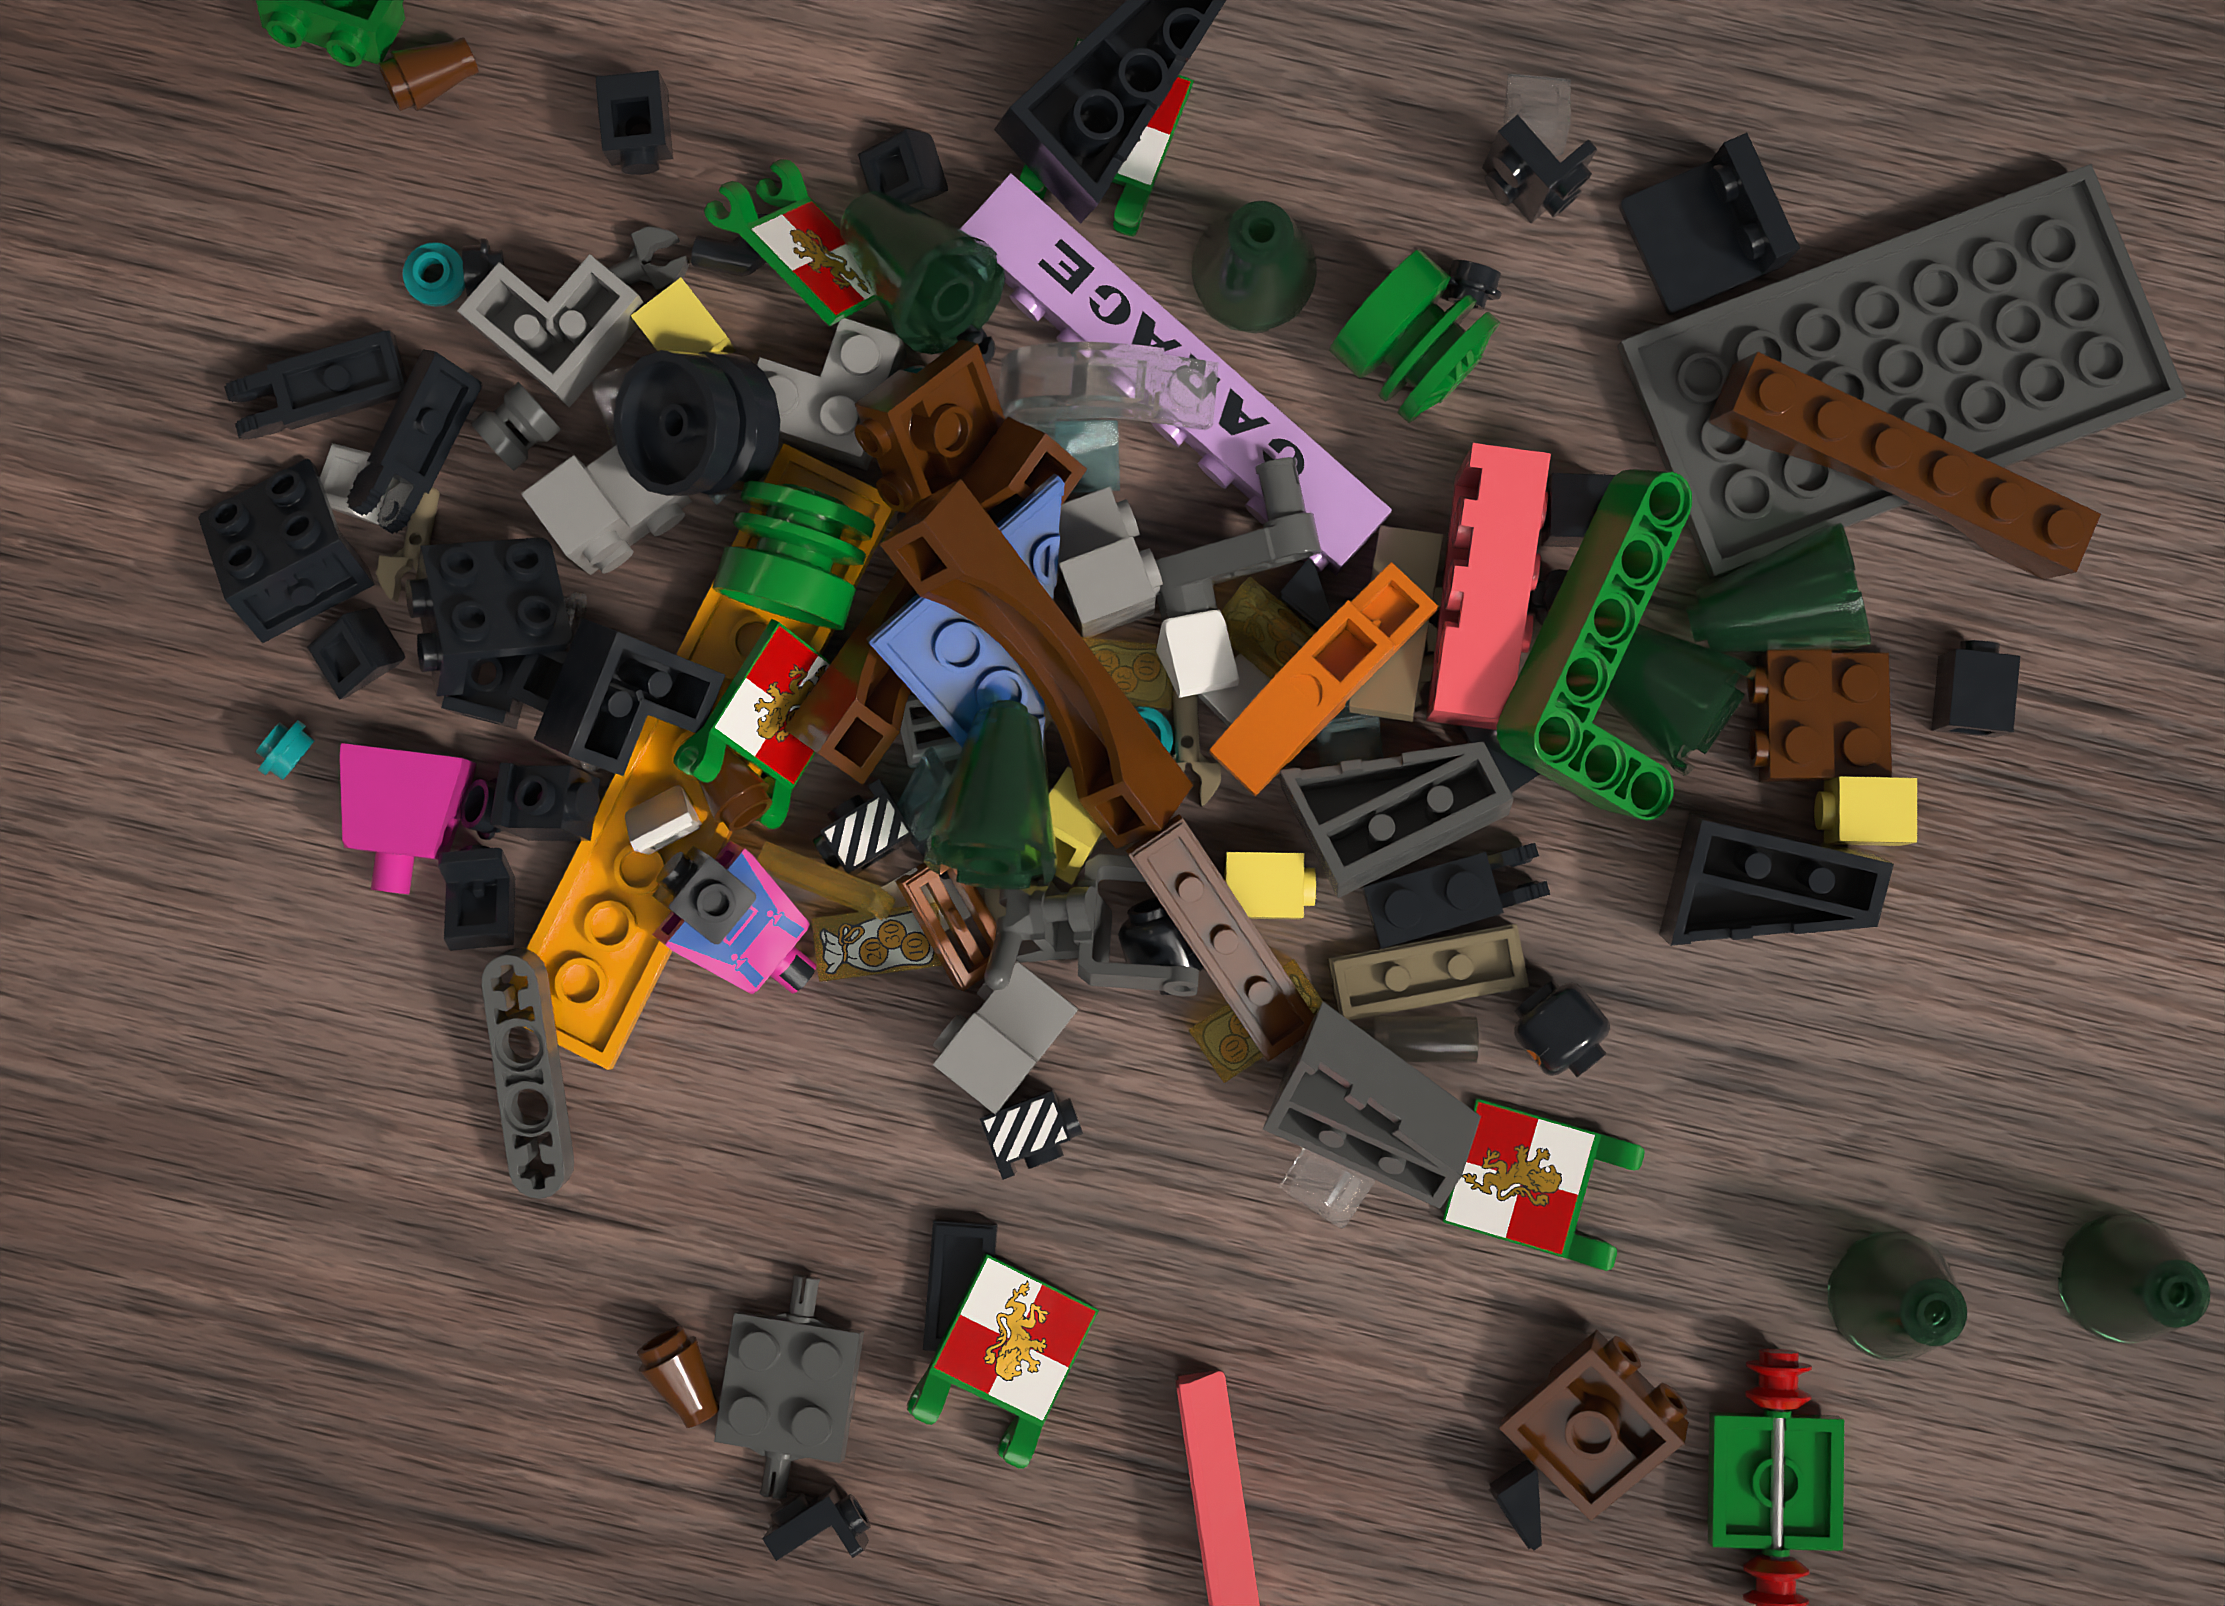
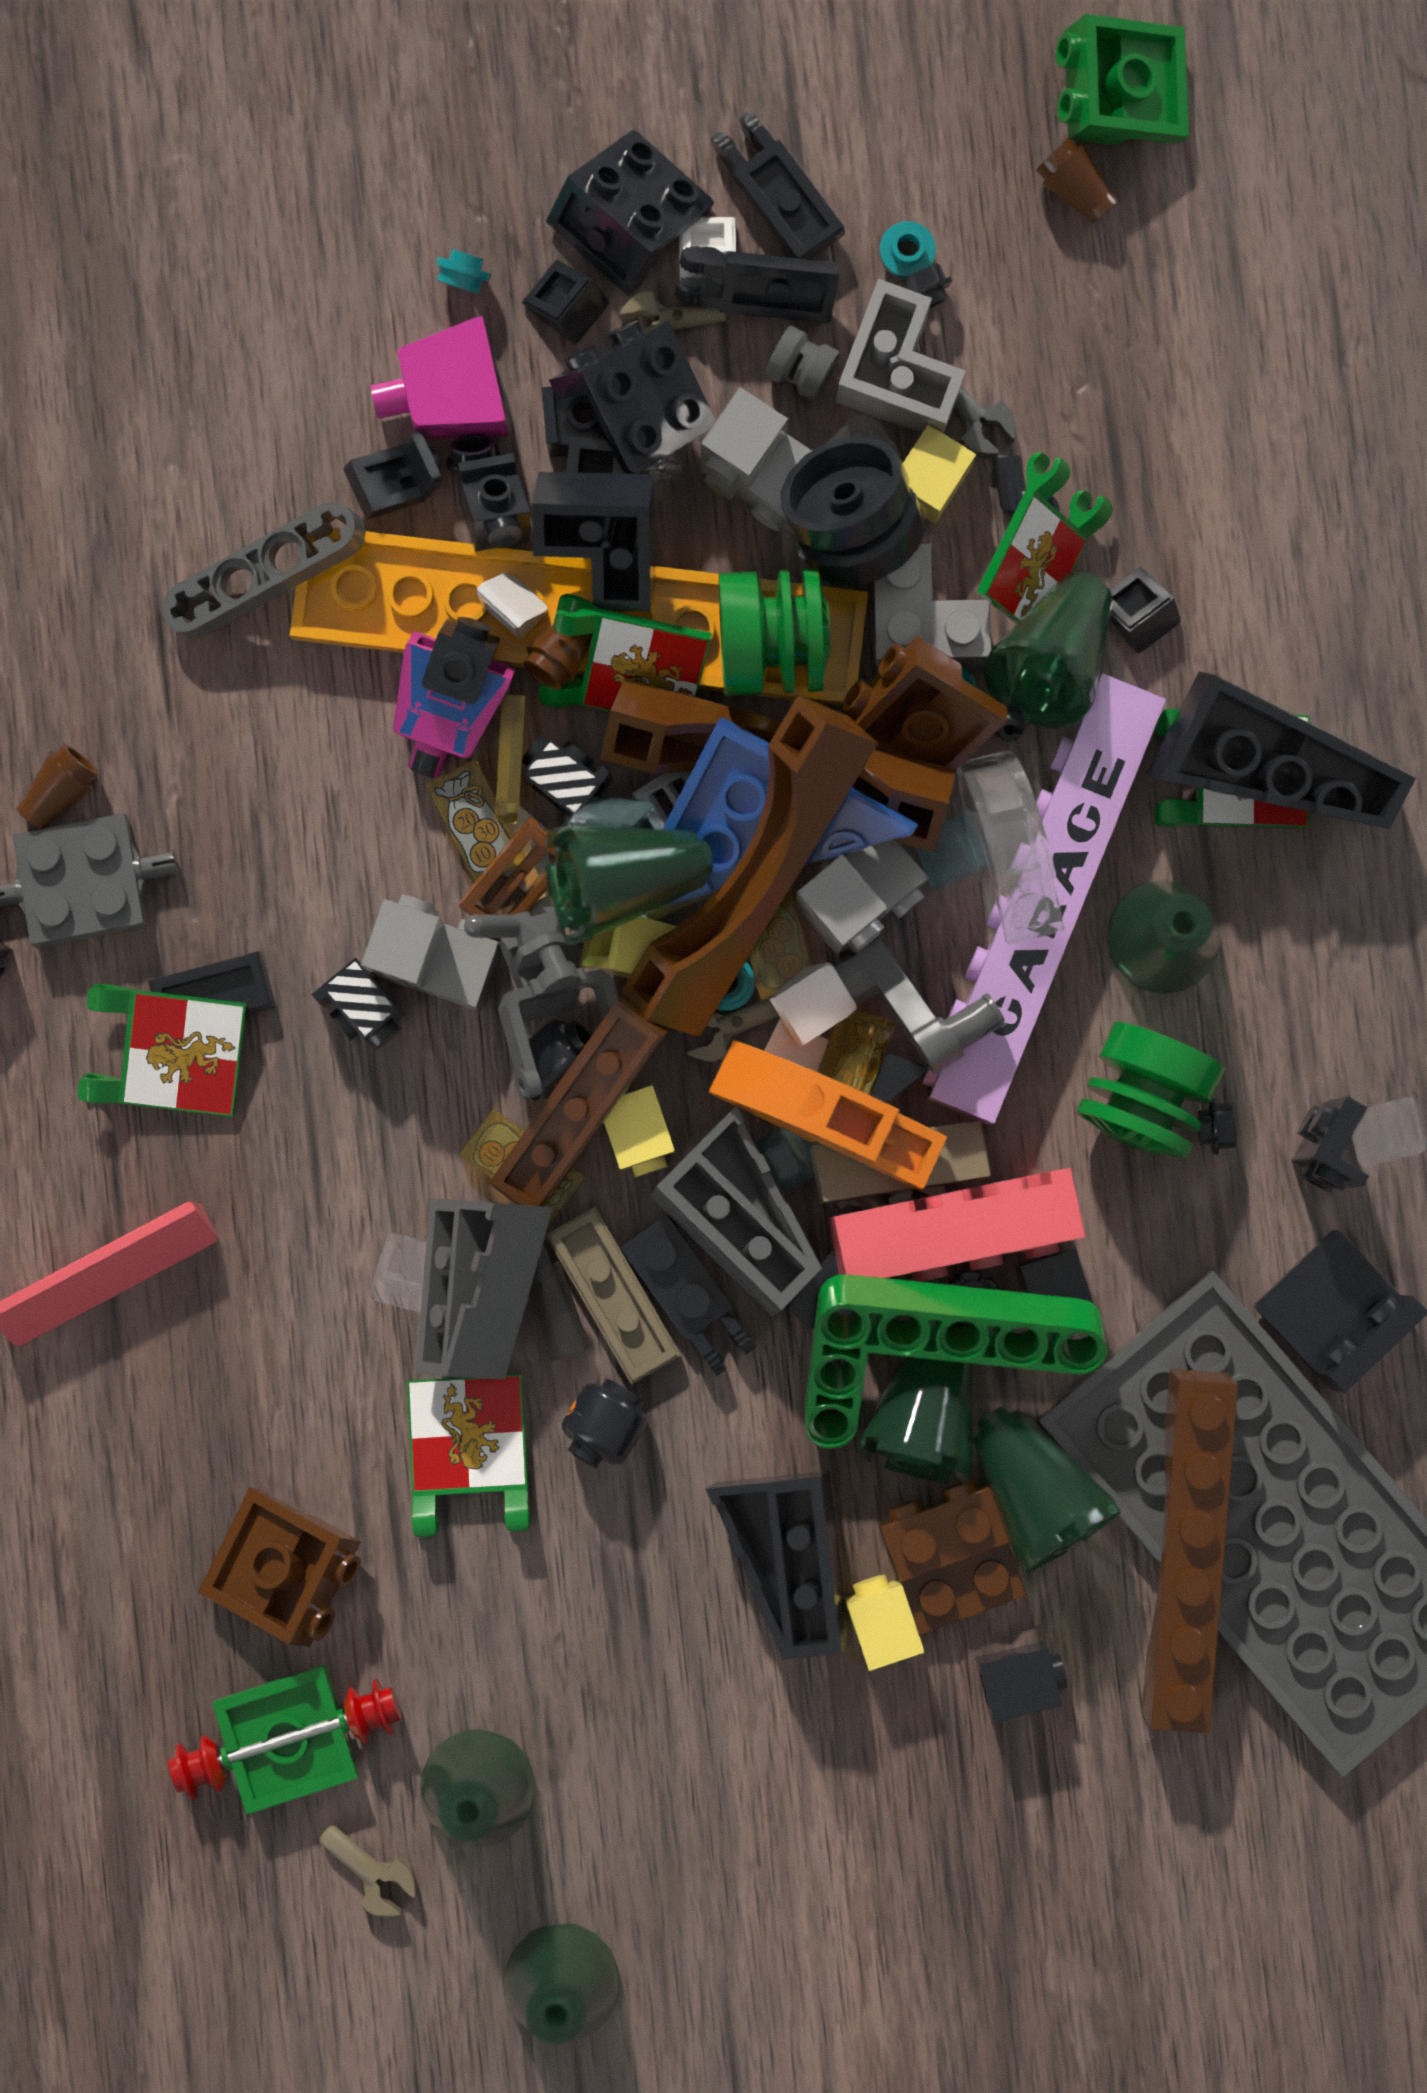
camera: 65 degrees right, 0 degrees up
(628, 101) = (1109, 353): black brick -> none
(1520, 1501) = (192, 1524): black slope -> none
(1944, 1439) = (370, 1872): none -> dark tan bar

